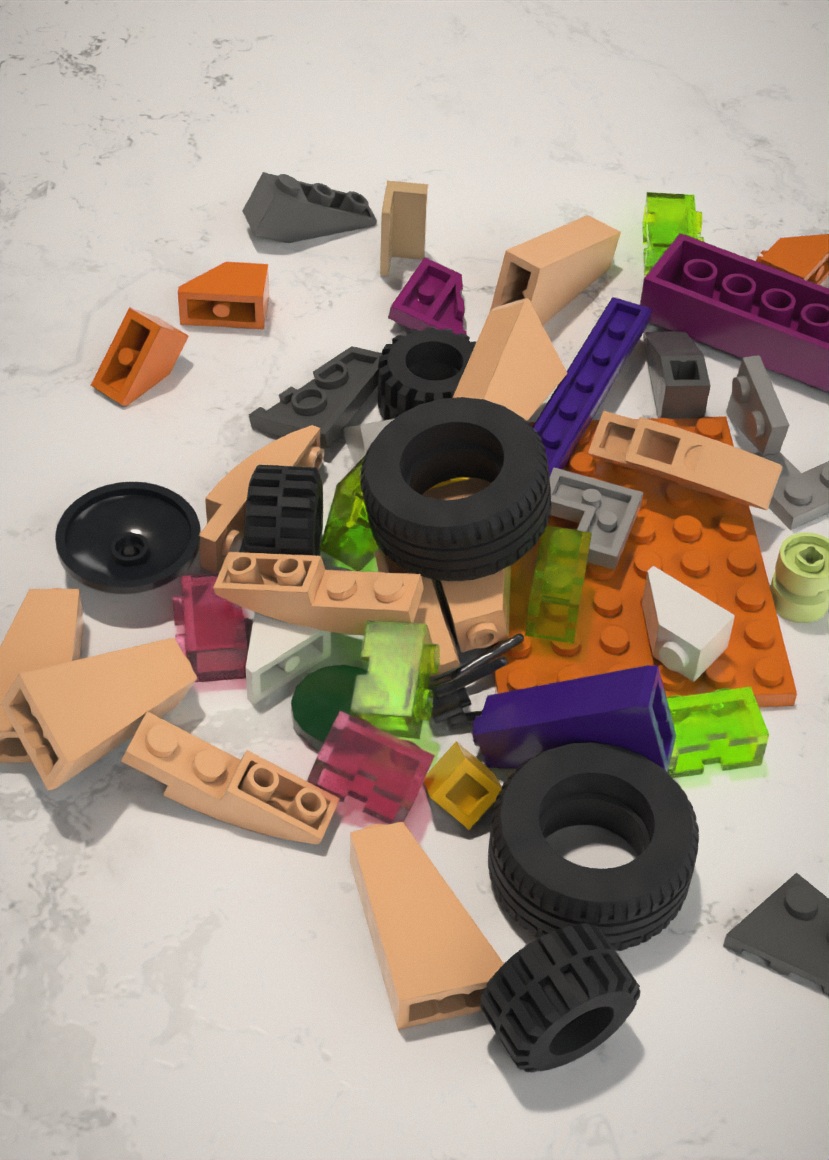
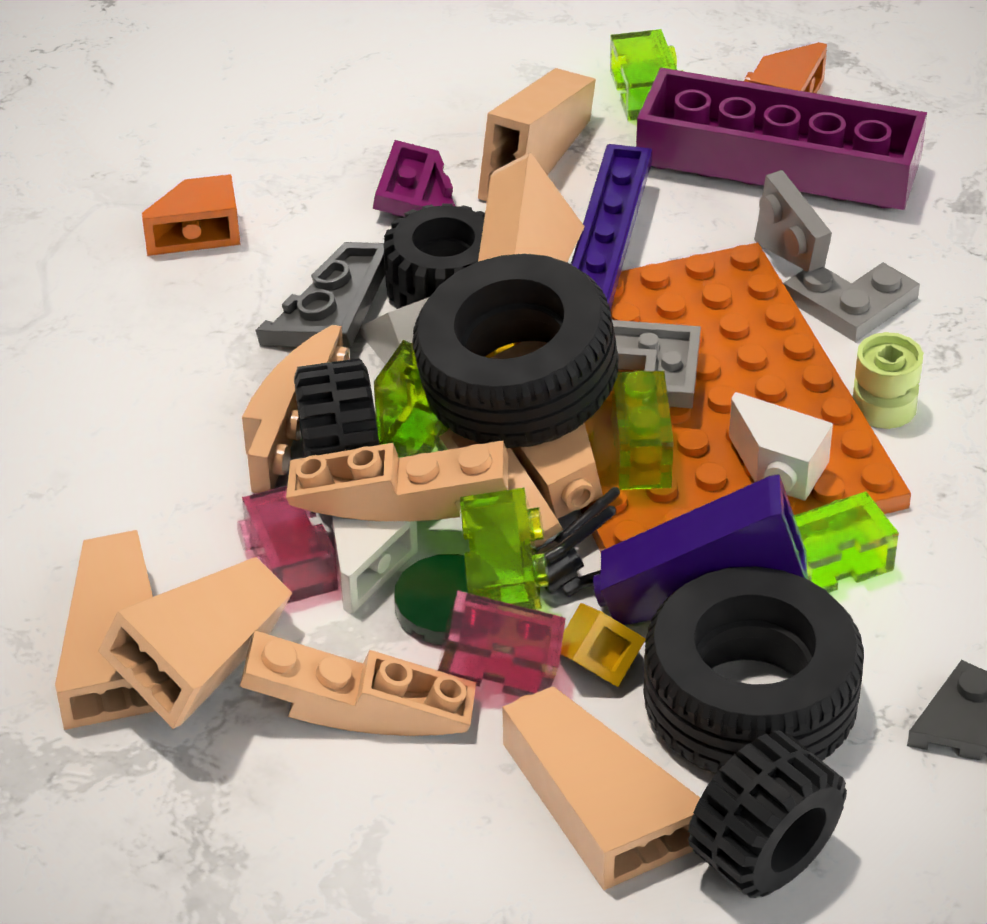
camera: 10 degrees left, 5 degrees down
(128, 537) = (171, 471): black dish -> none
(138, 357) = (117, 293): orange slope -> none
(300, 211) = (244, 117): dark grey slope -> none
(403, 222) = (364, 107): tan panel -> none
(677, 375) = (696, 210): dark grey slope -> none
(686, 458) = (735, 285): light nougat slope -> none

